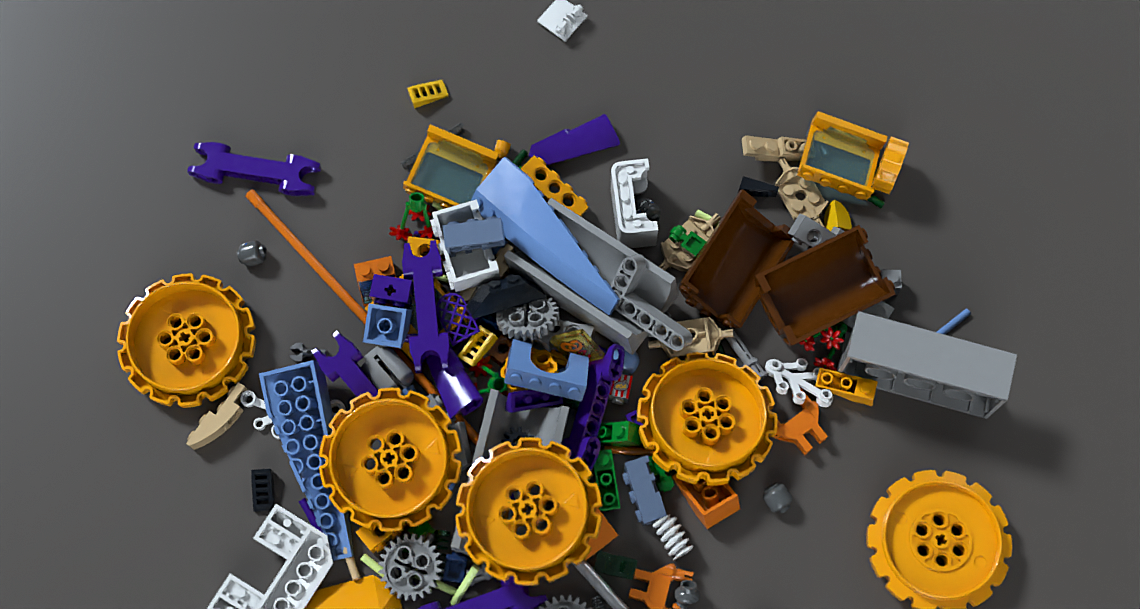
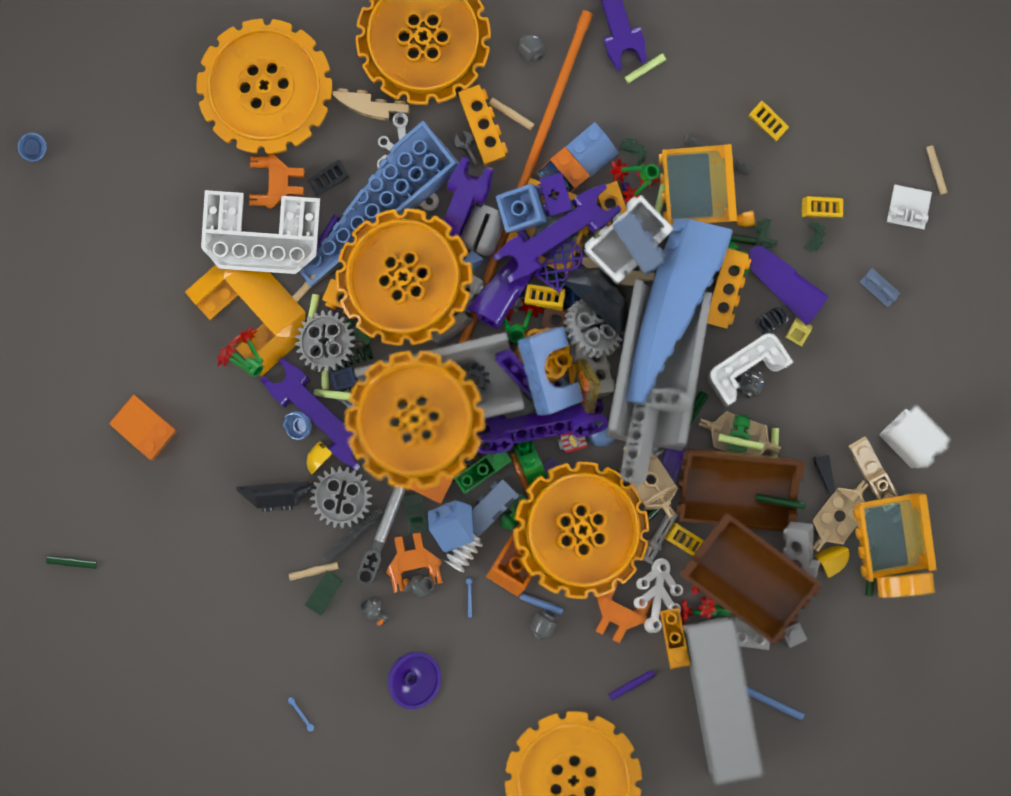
camera: 60 degrees right, 15 degrees up
(109, 488) = (228, 71): none -> light orange piece
(238, 536) = (278, 181): none -> orange connector
(299, 300) = (511, 113): none -> tan piece
(322, 337) = (488, 154): none -> light orange brick
(325, 170) = (645, 68): none -> yellowish green piece
(369, 243) = (592, 149): none -> medium blue slope
(386, 211) = (631, 146): none -> clear green bracket
(517, 139) = (763, 229): none -> clear green bracket
(519, 95) = (806, 207): none -> yellow slope
(551, 102) = (815, 243): none -> clear green bracket
(600, 167) = (772, 320): none -> black gear
(618, 72) = (880, 287): none -> sand blue hinge
(622, 152) = (798, 332): none -> light yellow slope
(644, 534) = (451, 525): none -> medium blue slope
(681, 311) = (671, 462): none -> dark purple tile
(695, 241) = (740, 442): none -> yellowish green piece
(703, 547) = (469, 581): none -> medium blue hinge
(750, 341) = (669, 537): none -> yellow slope
(756, 491) = (541, 603): none -> medium blue piece
(764, 235) = (780, 501): none -> dark green piece
(767, 94) = (915, 438): none -> white windscreen
(870, 445) = (631, 685): none -> dark purple piece

